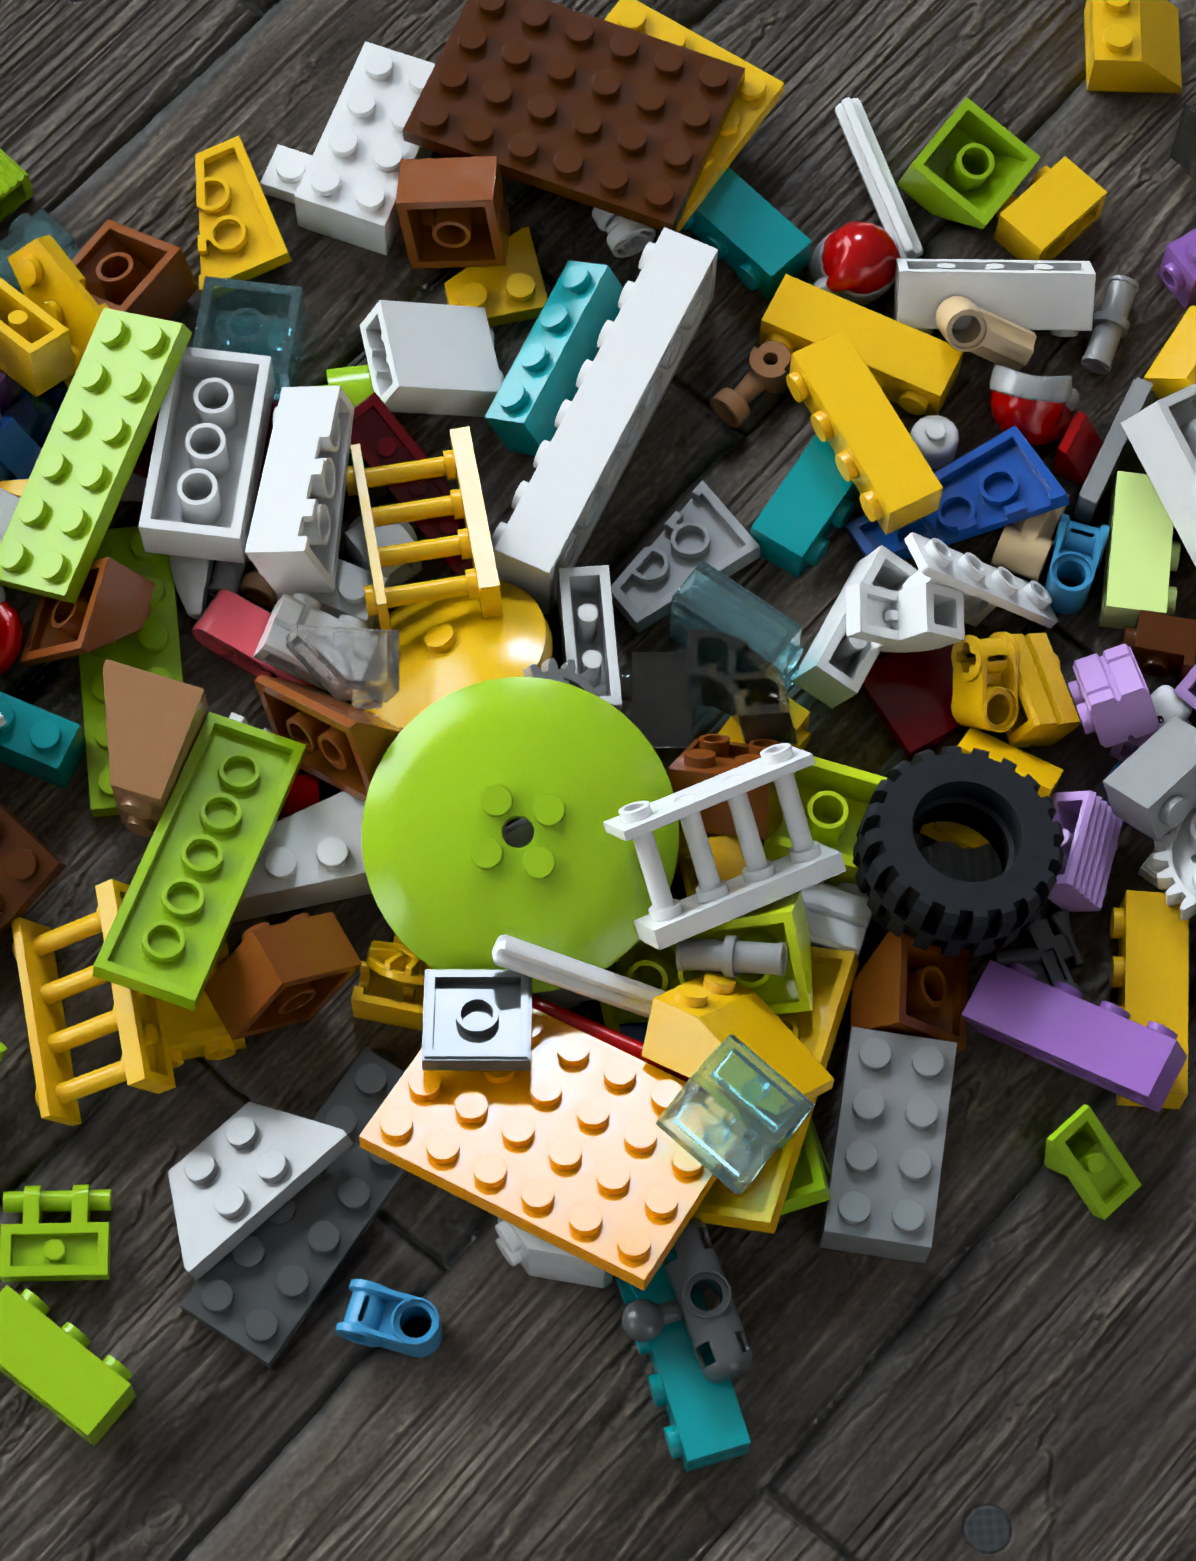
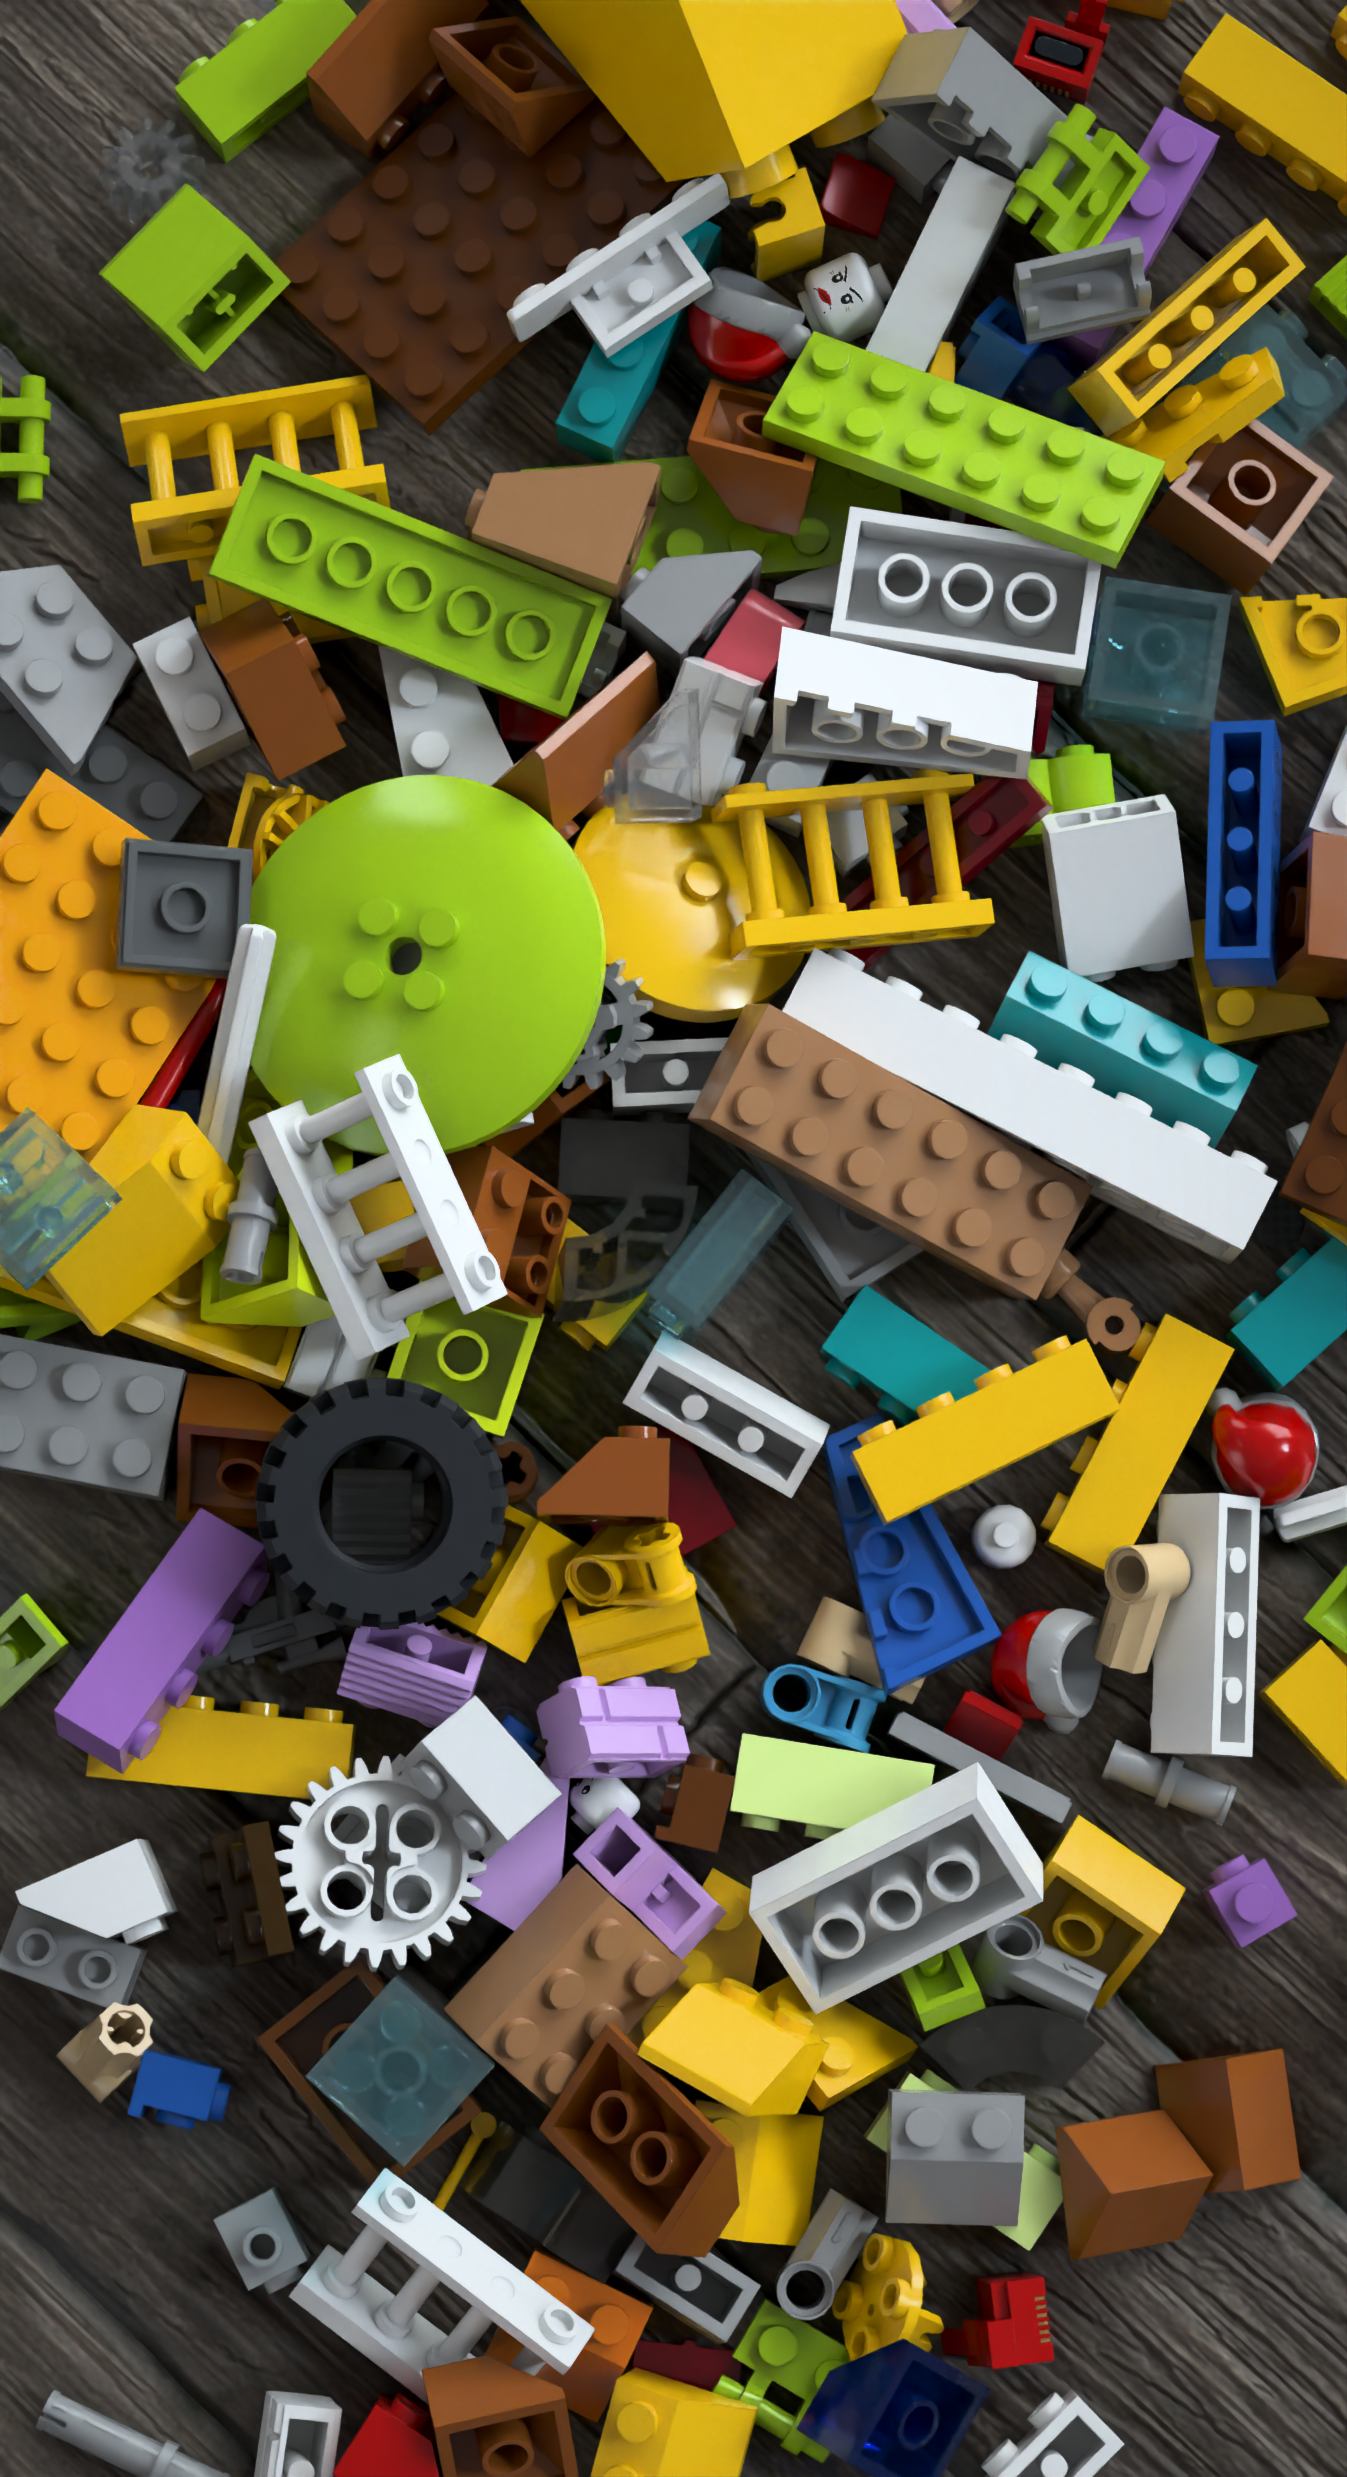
camera: 90 degrees right, 15 degrees up
(214, 661) = (685, 603): none -> light grey slope
(281, 1054) = (191, 693): none -> white brick
(405, 269) = (1243, 854): none -> blue brick
(648, 504) = (890, 1151): none -> medium nougat brick
(907, 619) = (707, 1459): white brick -> none
(921, 690) = (614, 1483): none -> dark orange slope
(982, 584) = (766, 1566): white bracket -> none

